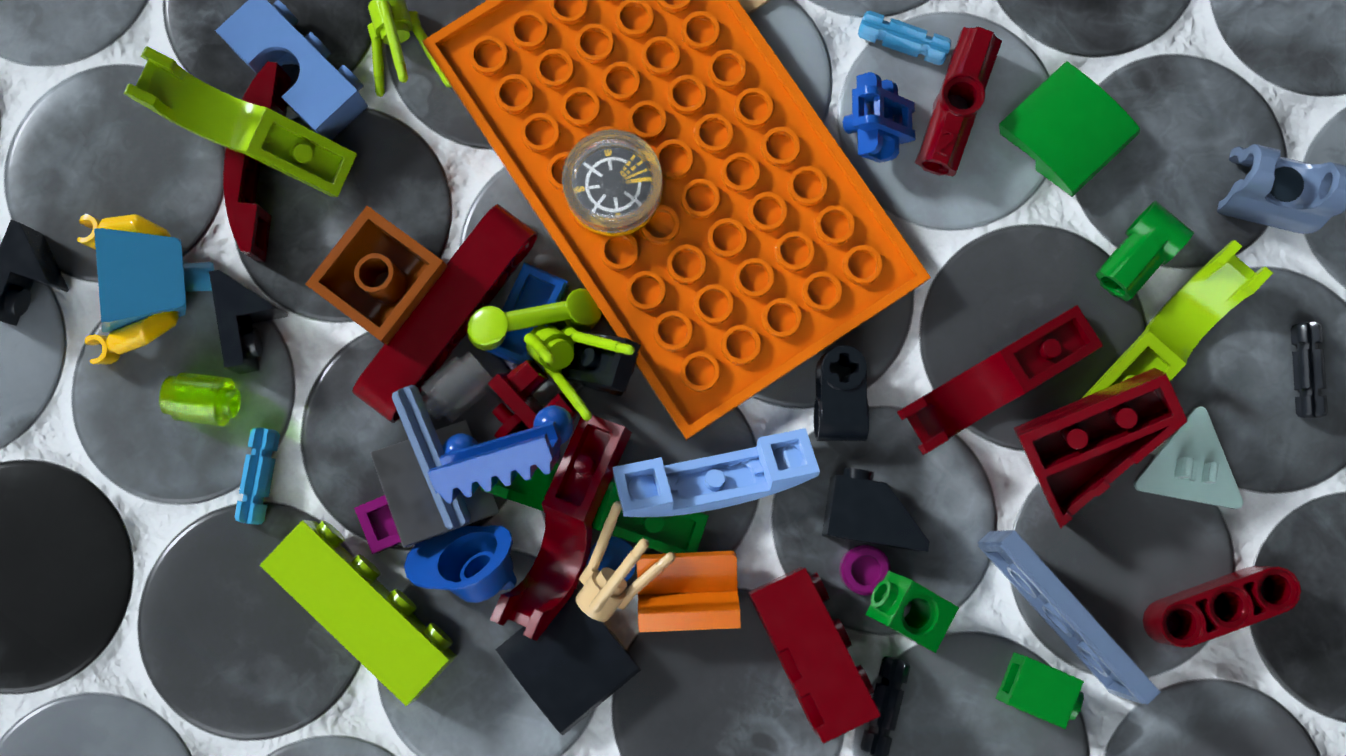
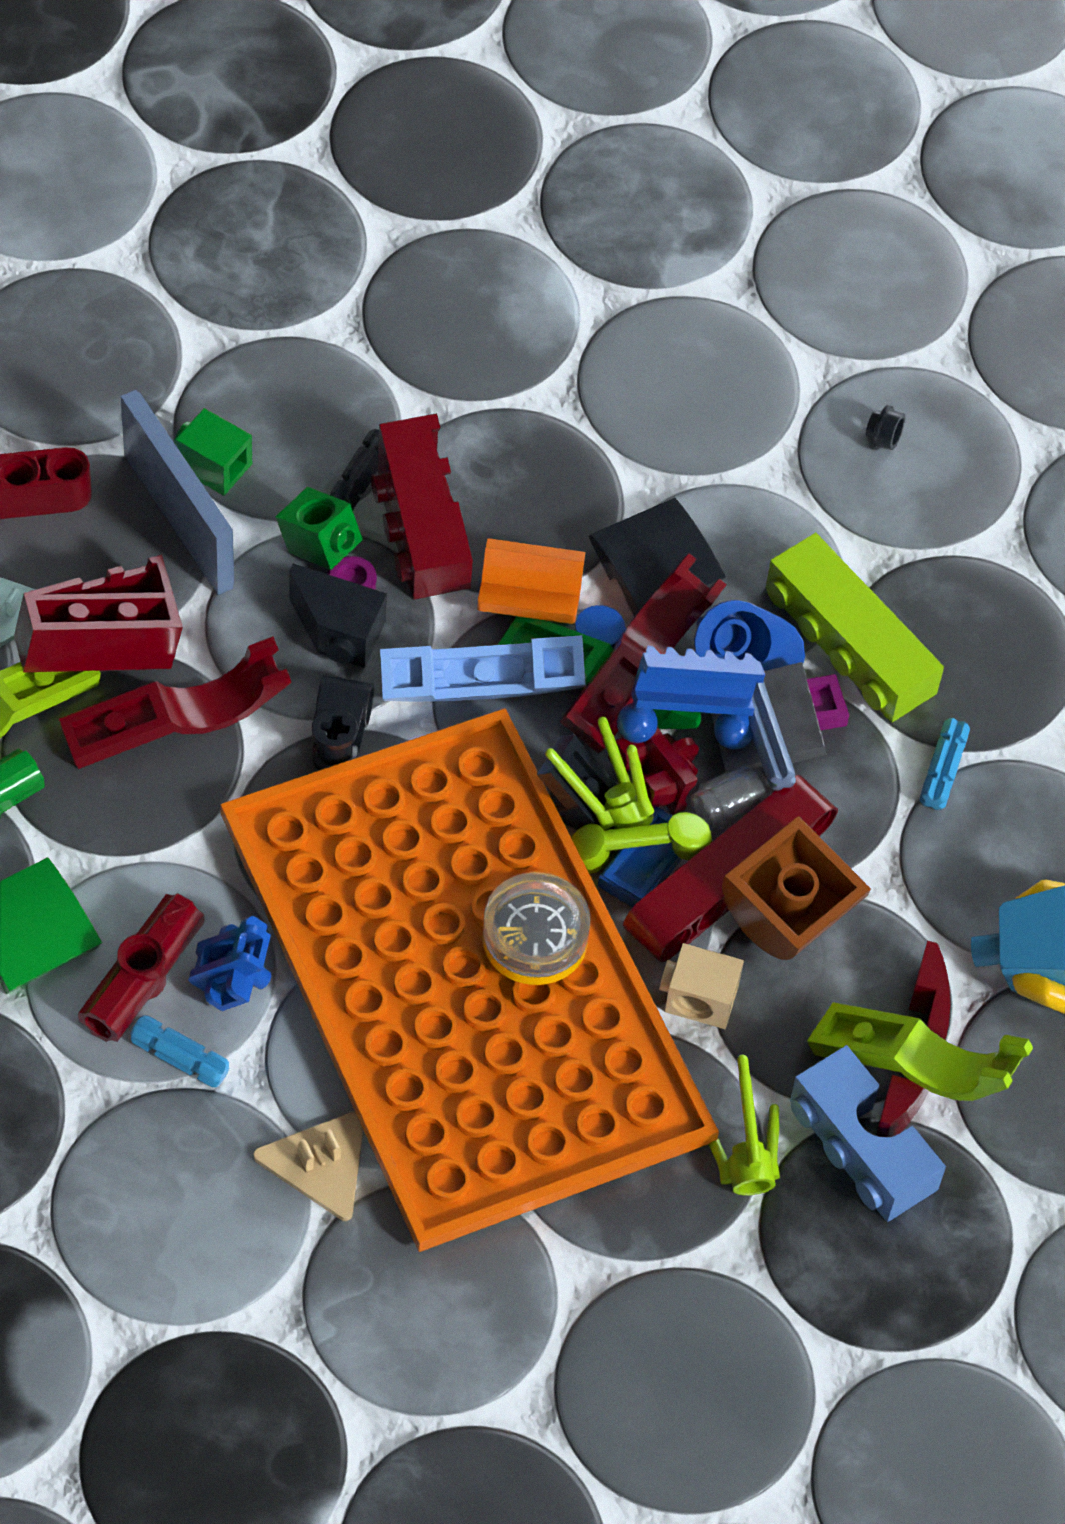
camera: 175 degrees left, 25 degrees down
(200, 398) = (995, 835): clear neon green brick -> none
(235, 313) = (944, 903): black slope -> none
(456, 183) = (701, 985): none -> tan brick
(607, 589) = (611, 593): tan plant -> none

